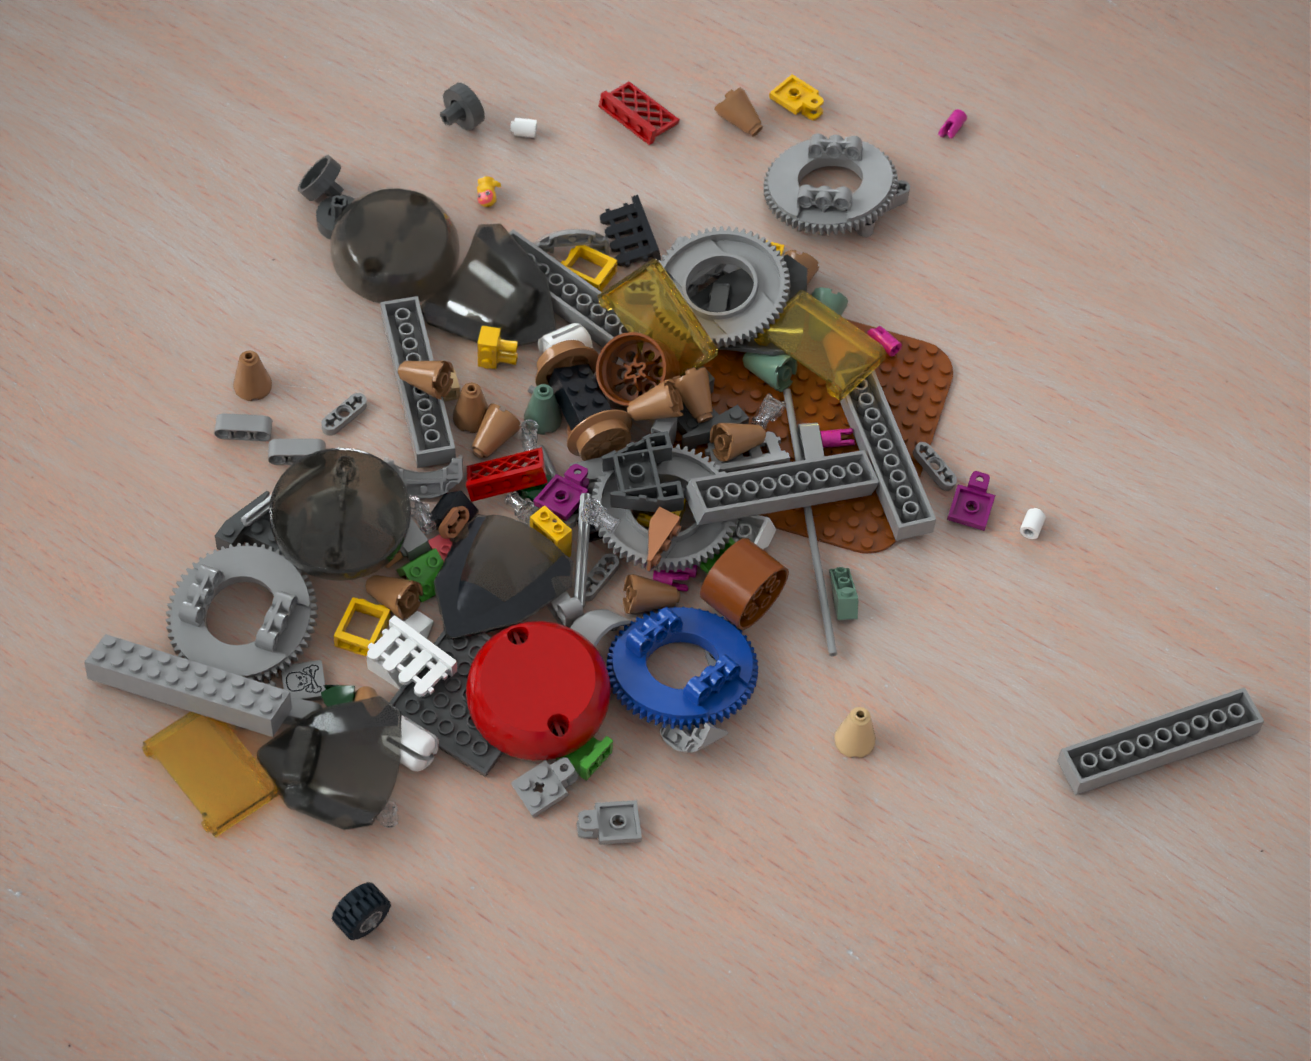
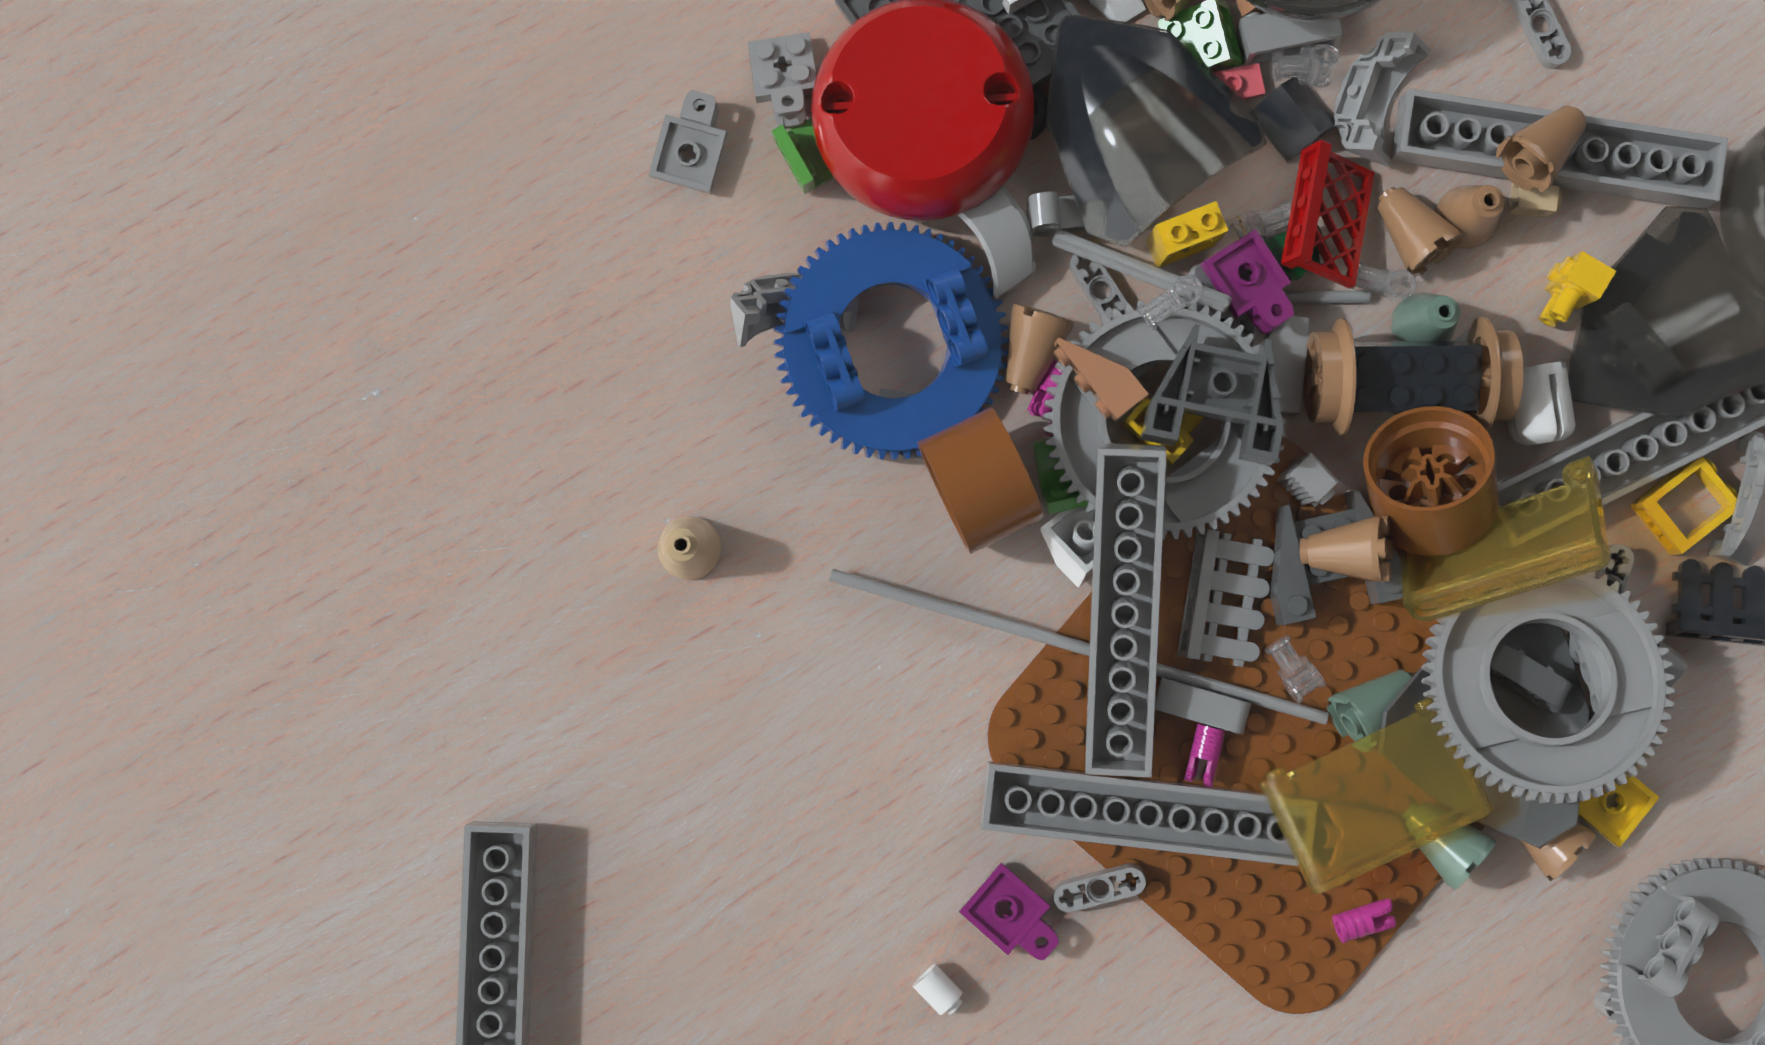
camera: 125 degrees right, 30 degrees up
(456, 524) = (1269, 105): nougat beam -> none
(657, 403) = (1344, 475): medium nougat cone -> none
(735, 439) = (1250, 588): medium nougat cone -> none
(844, 594) = (931, 640): sand green slope -> none

